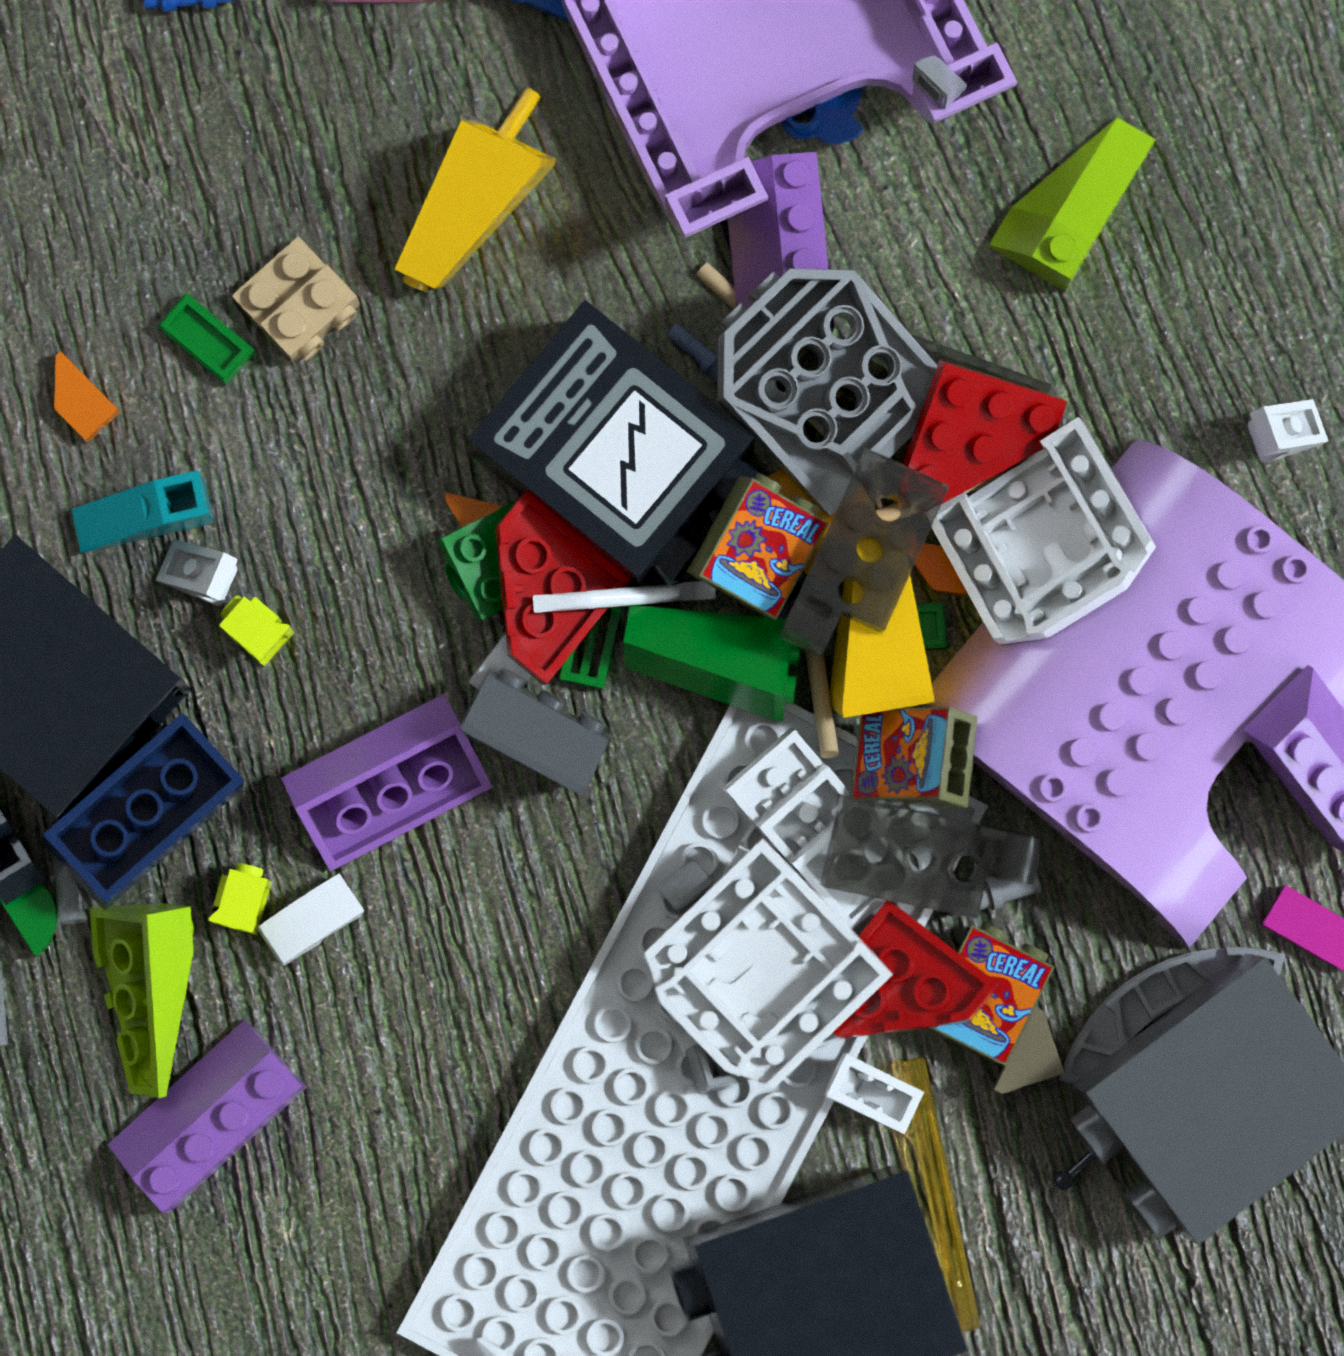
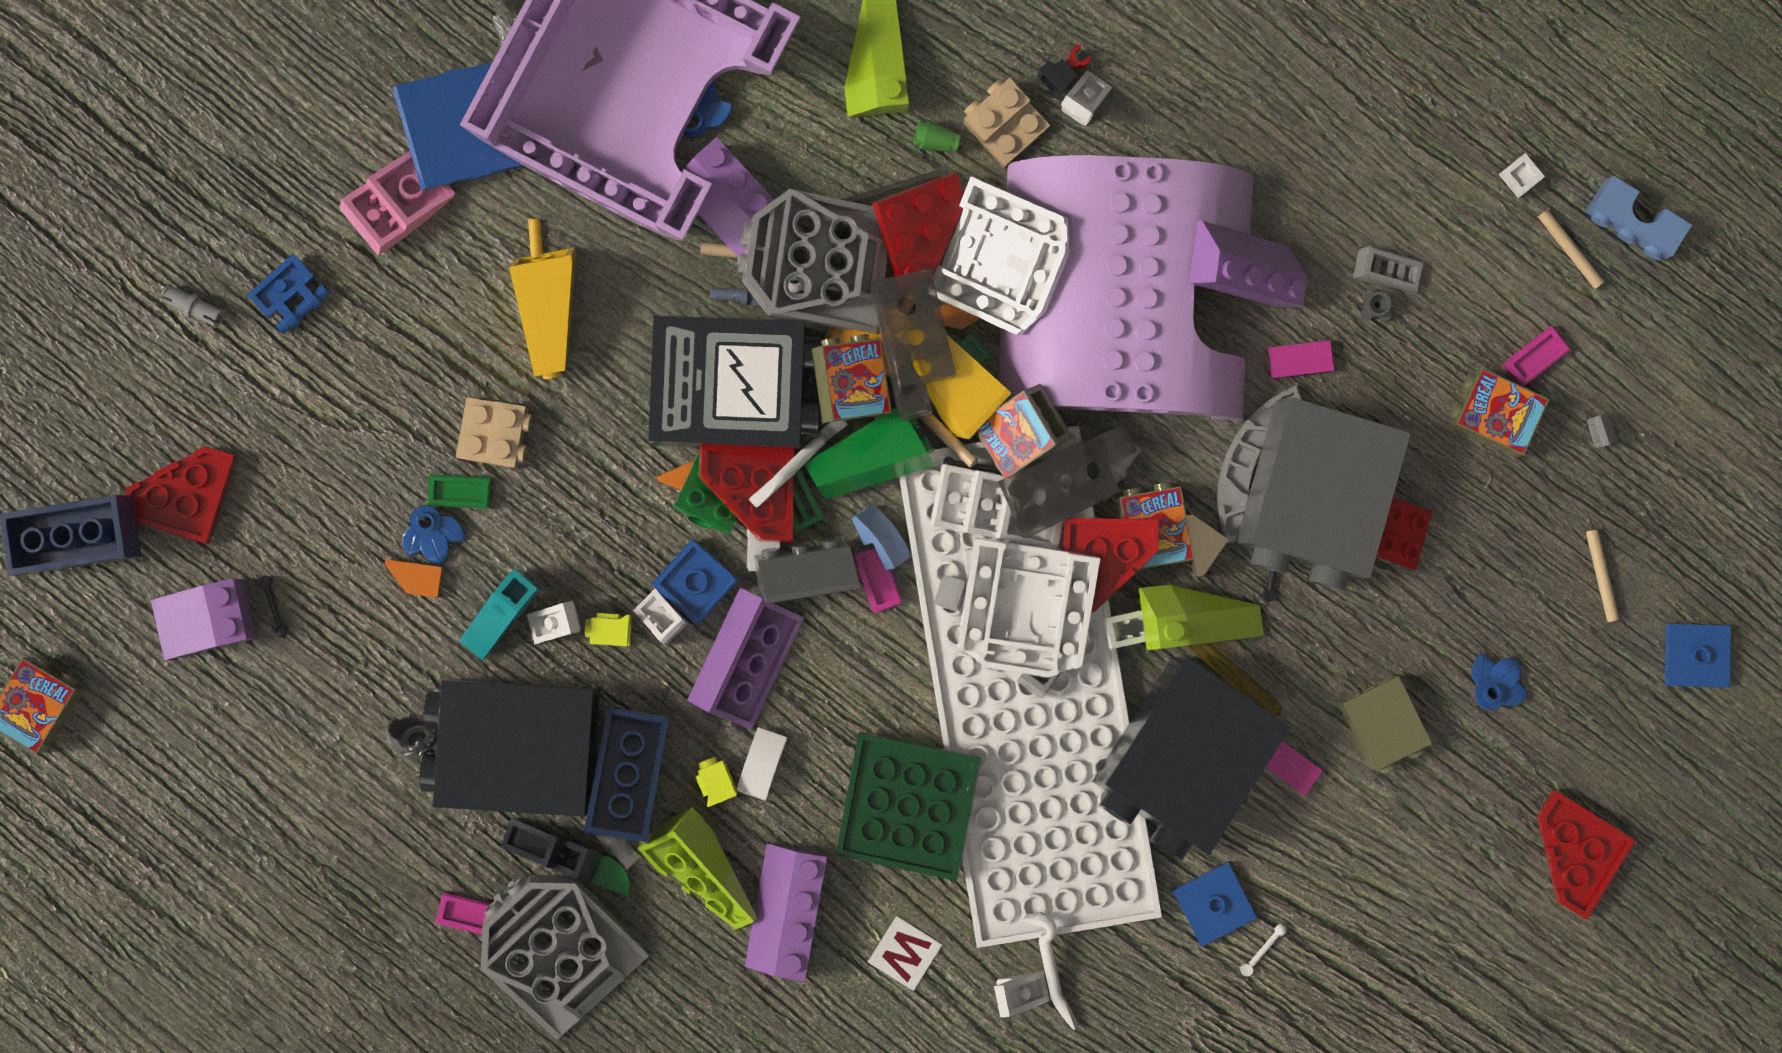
camera: 40 degrees left, 5 degrees up
(134, 369) = (431, 539): none -> blue plate
(306, 1275) = (904, 953): none -> white sticker
(325, 659) = (660, 617): none -> white slope
(397, 648) = (695, 582): none -> blue plate
(444, 1100) = (908, 806): none -> dark green plate
(613, 807) = (877, 581): none -> dark pink tile
(657, 746) = (877, 529): none -> medium blue slope
(804, 731) = (950, 461): none -> black hinge
(937, 80) = (756, 48): light grey slope -> none
(947, 1131) = (1191, 617): none -> lime wedge
(1073, 343) = (935, 137): none -> bright green cone
(1170, 387) = (1005, 121): none -> tan plate
(1277, 381) = (1062, 74): none -> black piece
(1280, 1227) = (1404, 533): none -> red hinge

